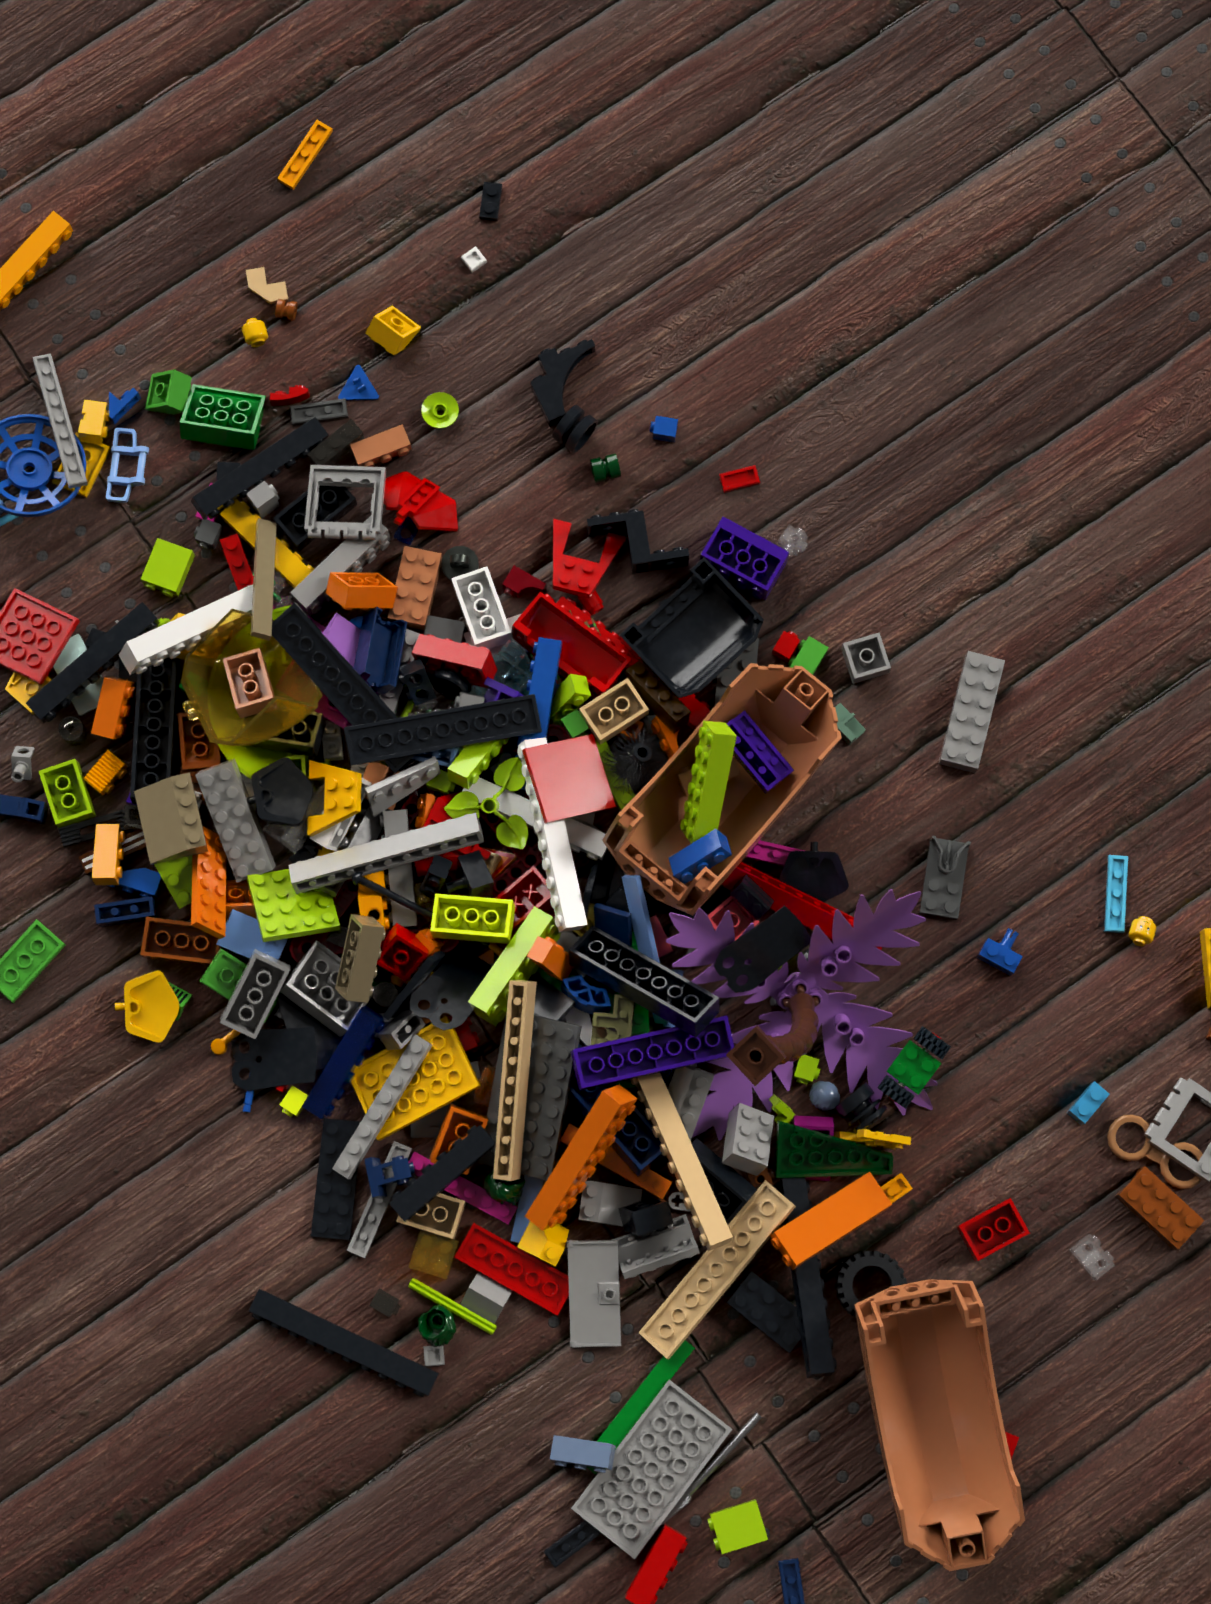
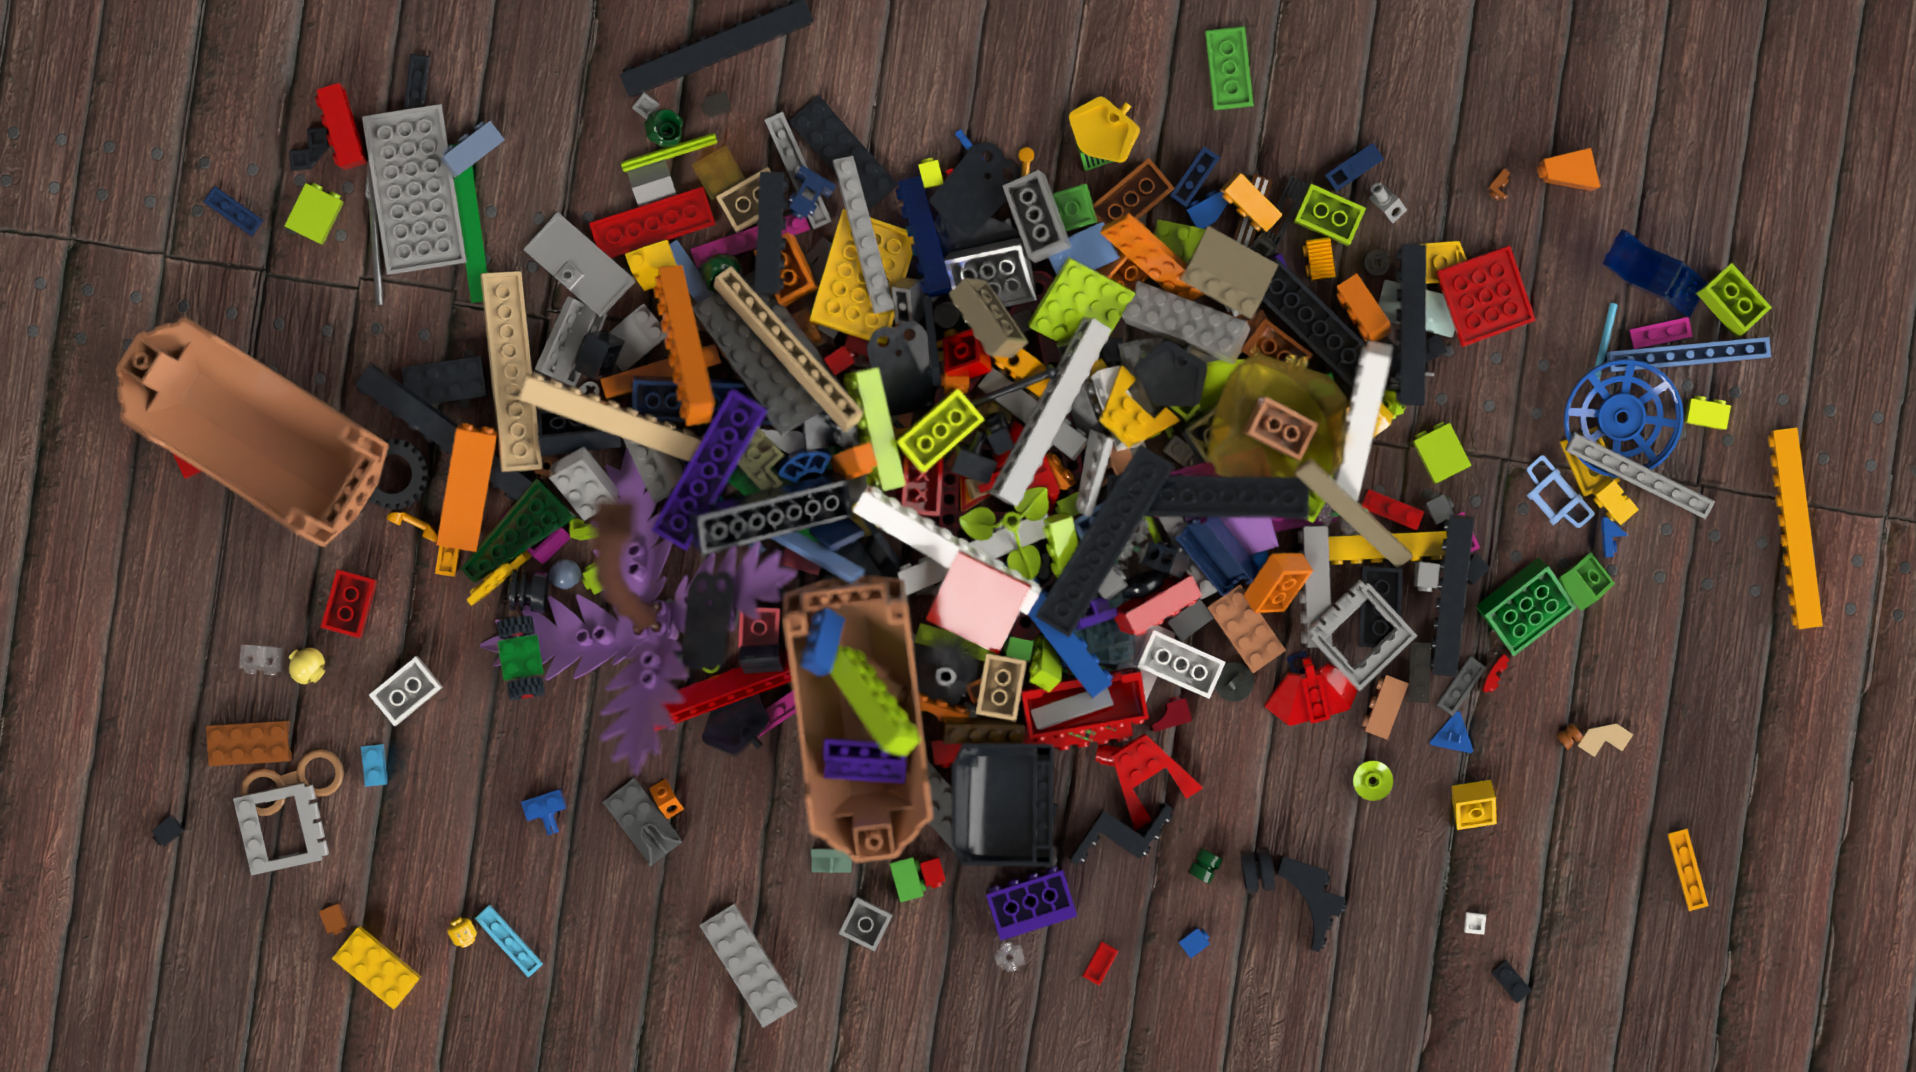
camera: 135 degrees right, 10 degrees up
(255, 332) = (1573, 694): yellow head -> none
(488, 1039) = (839, 361): none -> red brick
(542, 985) = (846, 439): none -> dark grey brick
(585, 653) = (1069, 709): none -> light grey tile
(686, 1572) = (307, 158): none -> black tile
(887, 1221) = (398, 517): none -> light orange bar
(912, 876) = (665, 797): none -> orange bracket
(1015, 1129) = (406, 691): none -> white brick
(1065, 1219) = (306, 665): none -> light yellow plant

